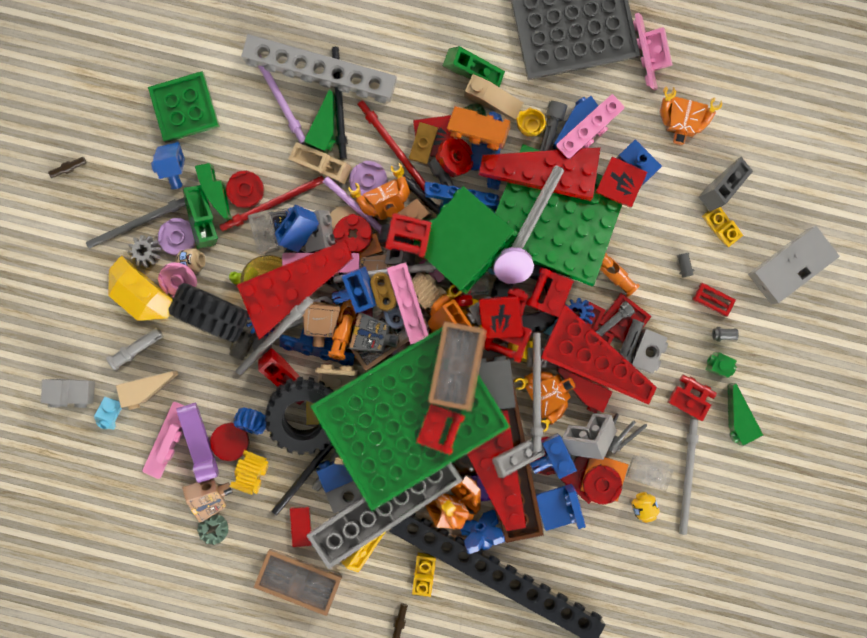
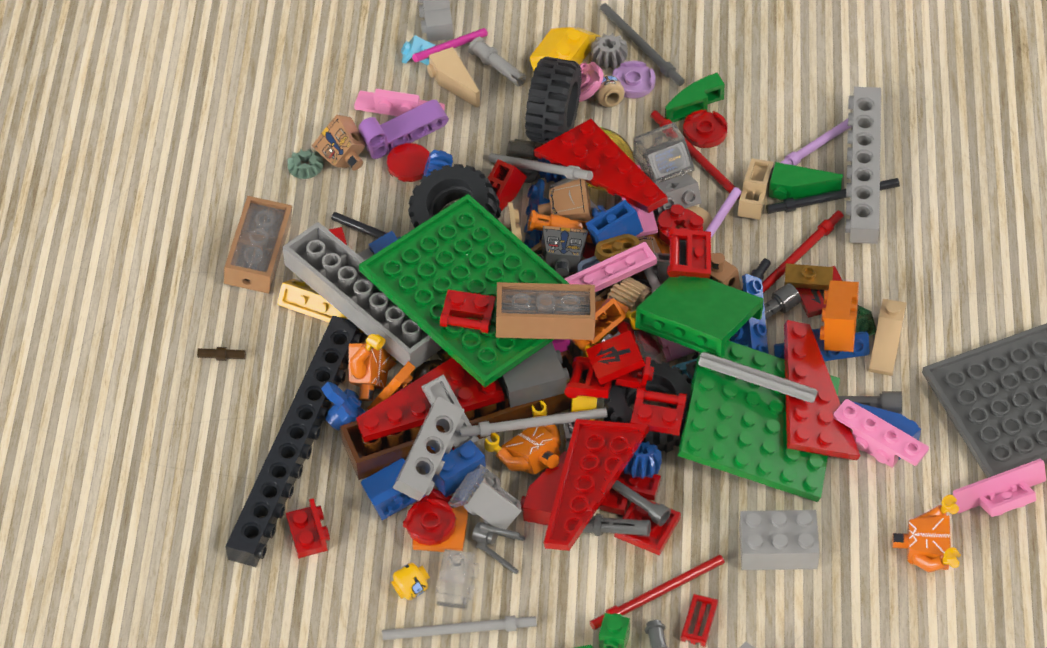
camera: 80 degrees right, 35 degrees down
(108, 386) = (452, 43): none -> dark pink bar
(169, 163) = (713, 49): blue brick -> none
(183, 106) = (783, 58): green plate -> none
(200, 217) = (659, 90): green slope -> none
(249, 473) = (377, 177): yellow brick -> none
(296, 228) = (670, 163): blue brick -> none
(368, 176) = (750, 238): lavender tile -> none
(384, 199) = (733, 249): orange torso -> none
(424, 574) = (279, 369): yellow slope -> none
(447, 161) = (800, 291): red plate -> none
(466, 63) = (917, 312): green slope -> none
(513, 265) = (680, 360): lavender tile -> none
(530, 468) = (409, 480): none -> light grey brick
(531, 122) = (868, 377): yellow hair -> none
(581, 577) = (307, 530): none -> red bracket
(589, 453) = (468, 487): none -> clear piece
(620, 277) = (700, 504): orange piece -> none
(621, 182) = (820, 475): red tile -> none
(639, 157) = (853, 500): blue brick -> none
(657, 343) = (603, 542): light grey brick -> none
(663, 226) = (779, 540): none -> light grey brick
(685, 265) = (735, 577): dark grey pin -> none
(689, 403) = (556, 609): red plate -> none
(698, 360) = (660, 590): none -> red bar
(722, 226) = (800, 612): yellow slope -> none
(725, 185) = (855, 602): dark grey slope -> none

